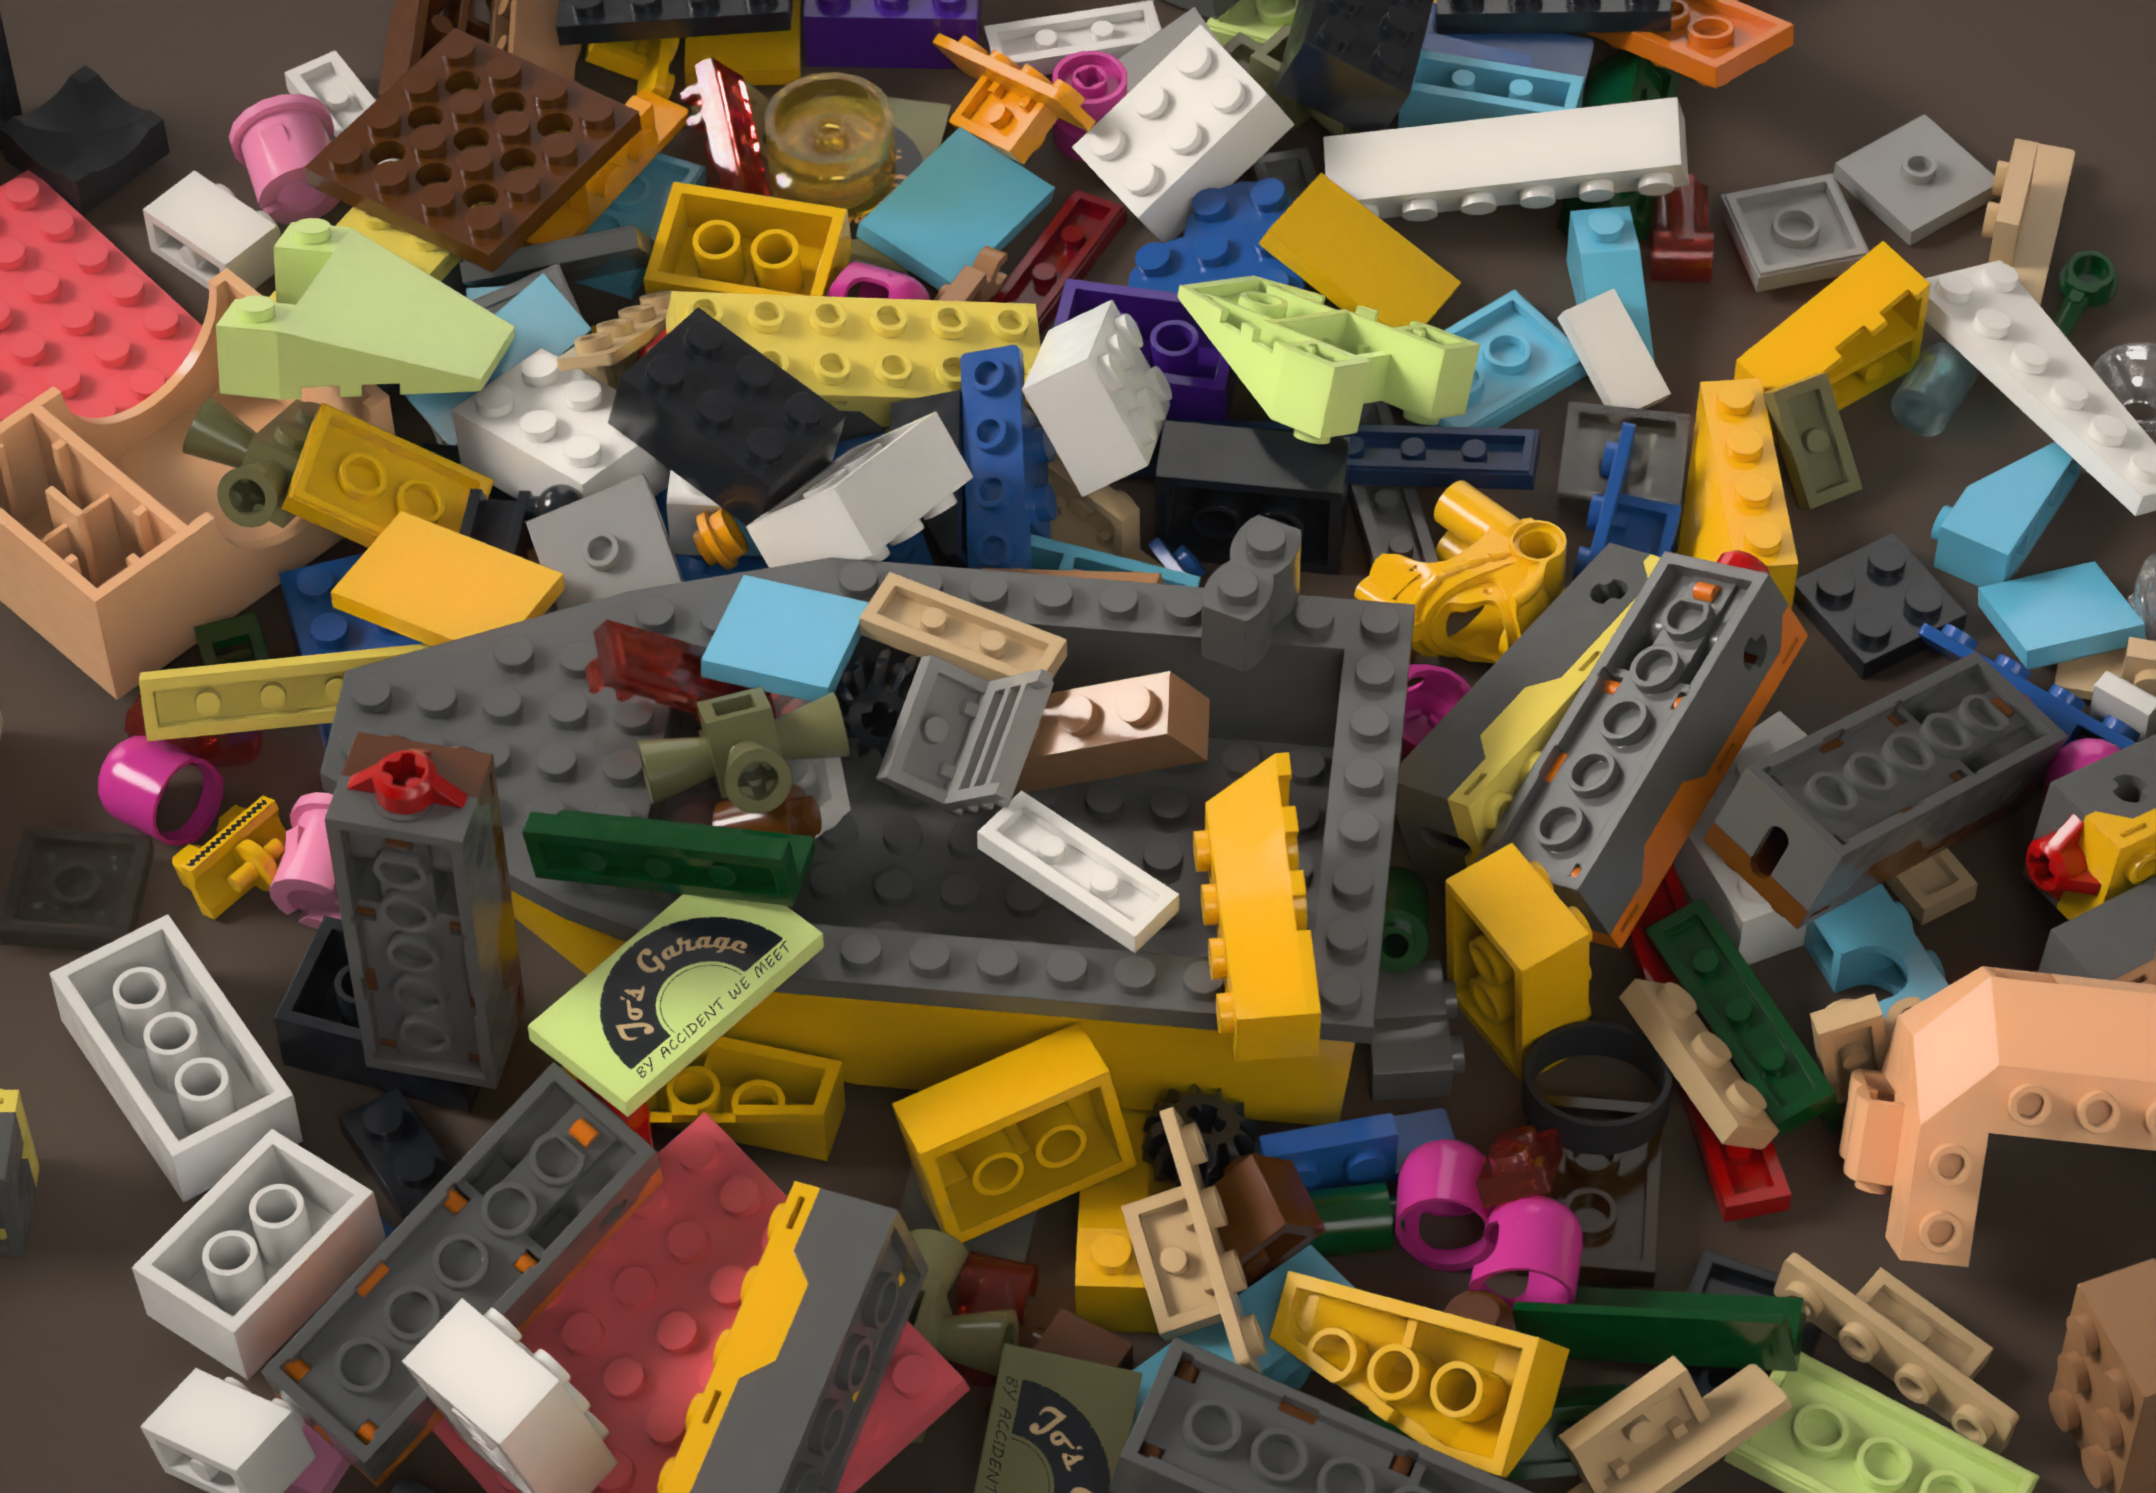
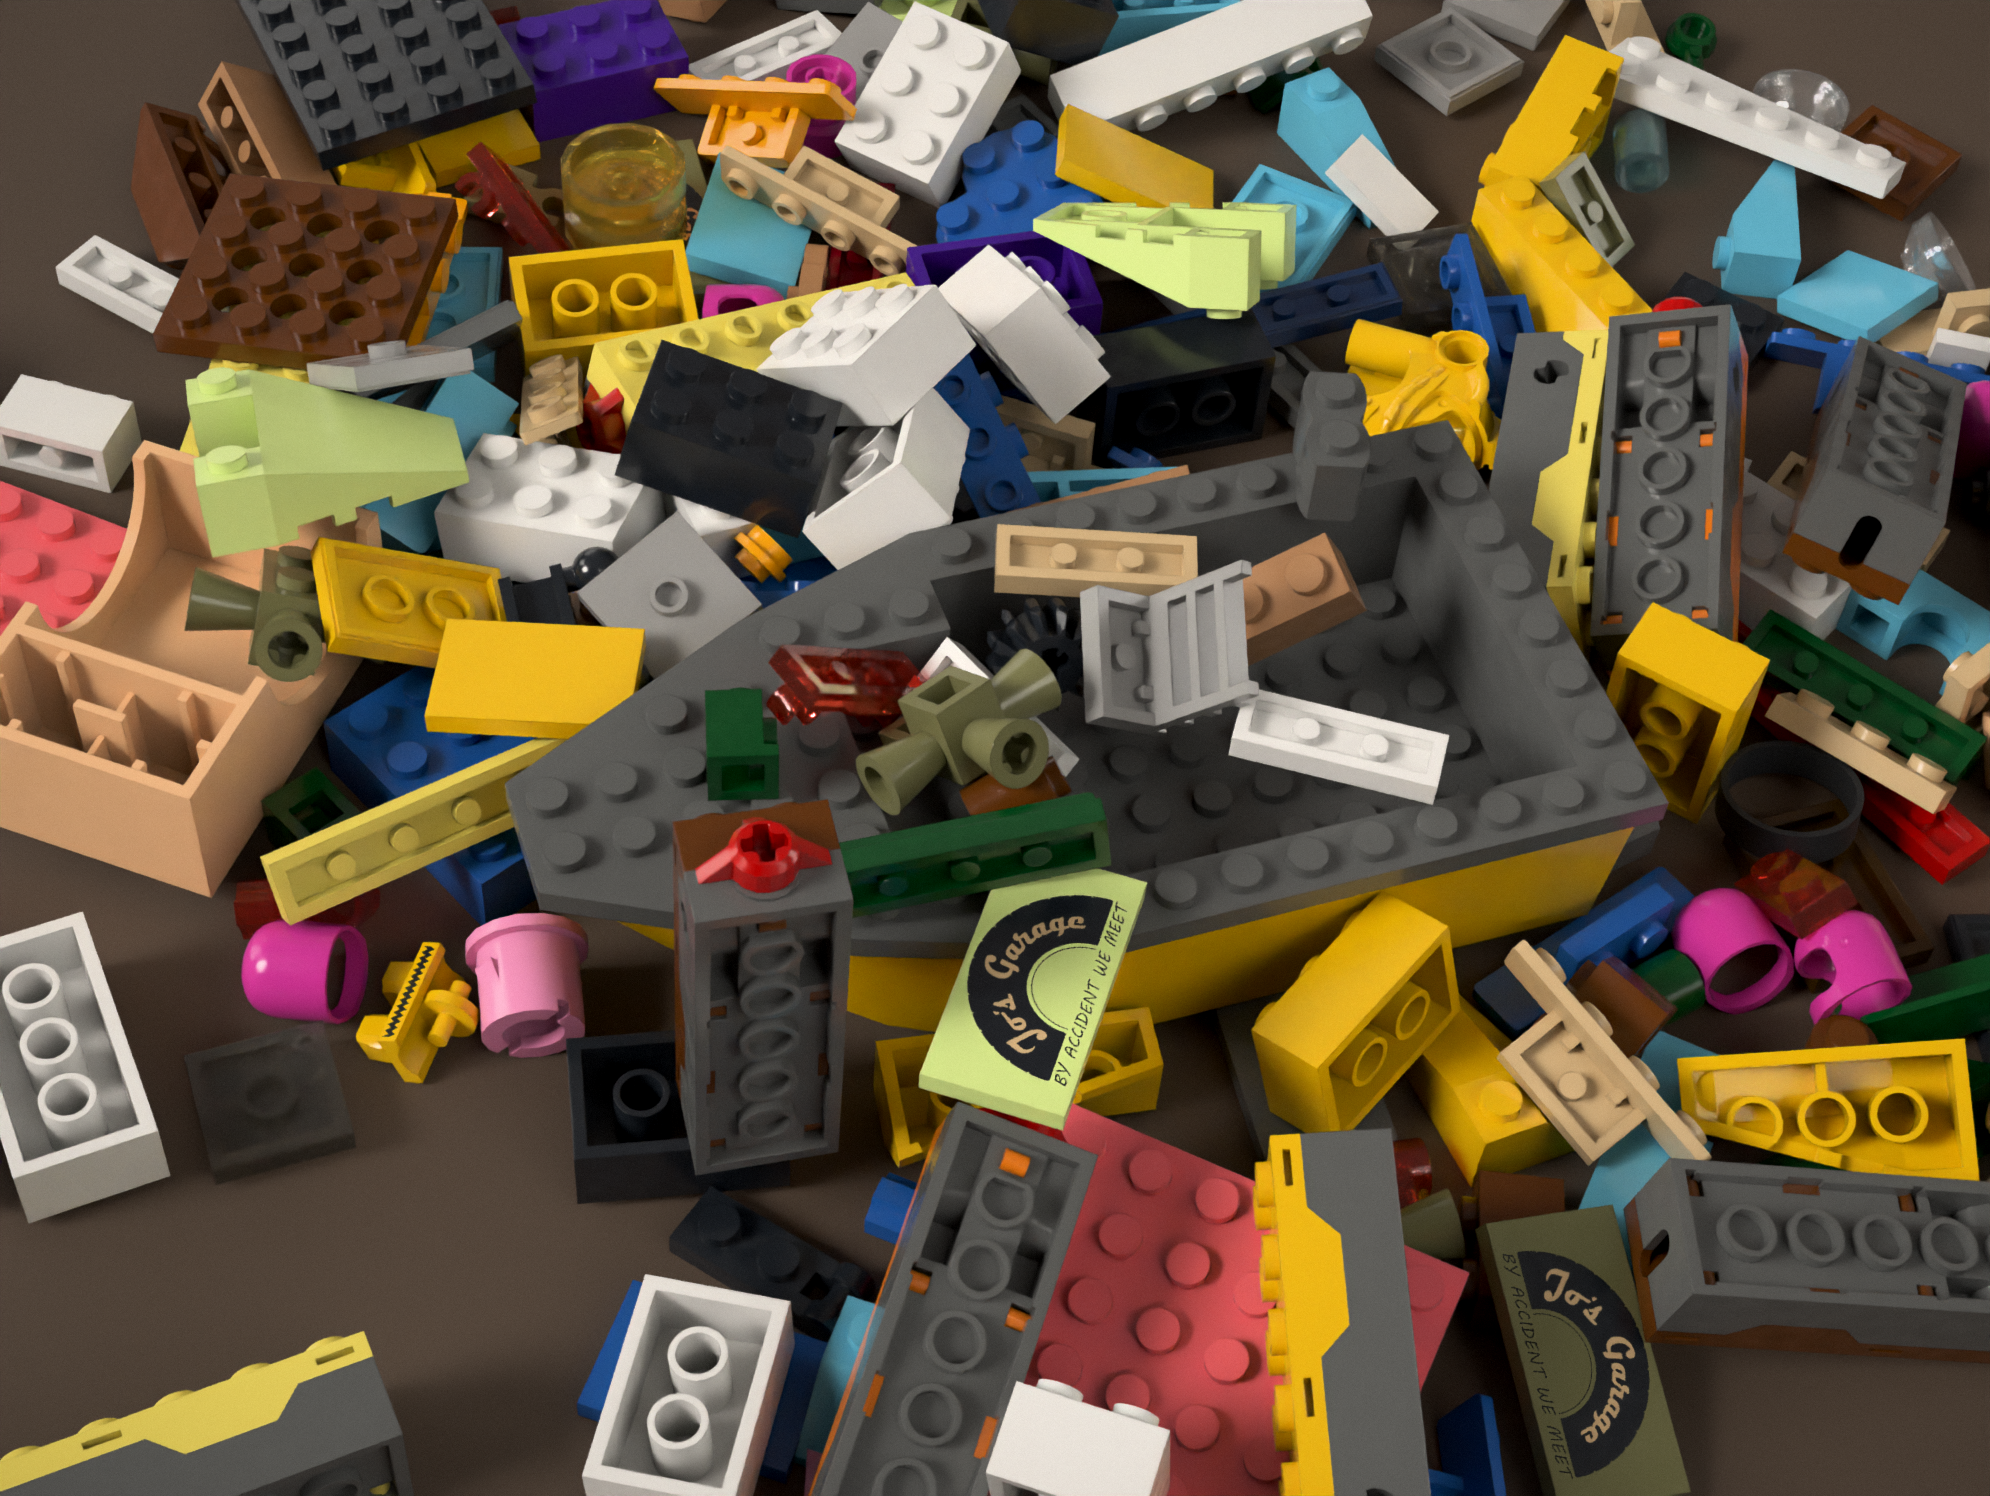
camera: 30 degrees left, 0 degrees up
(173, 1054) = (478, 1236): white brick -> none
(275, 145) = (105, 337): bright pink piece -> none
(476, 261) = (389, 366): none -> light grey plate
(541, 698) = (740, 746): none -> dark green brick
(784, 639) = (932, 617): medium azure tile -> none
(896, 375) = (872, 350): none -> white brick
(1031, 202) = (827, 199): none -> tan bracket
(1222, 1127) = (1481, 971): black gear -> none
(1259, 917) = (1540, 728): yellow wedge -> none
(1681, 240) = (1382, 94): clear red piece -> none

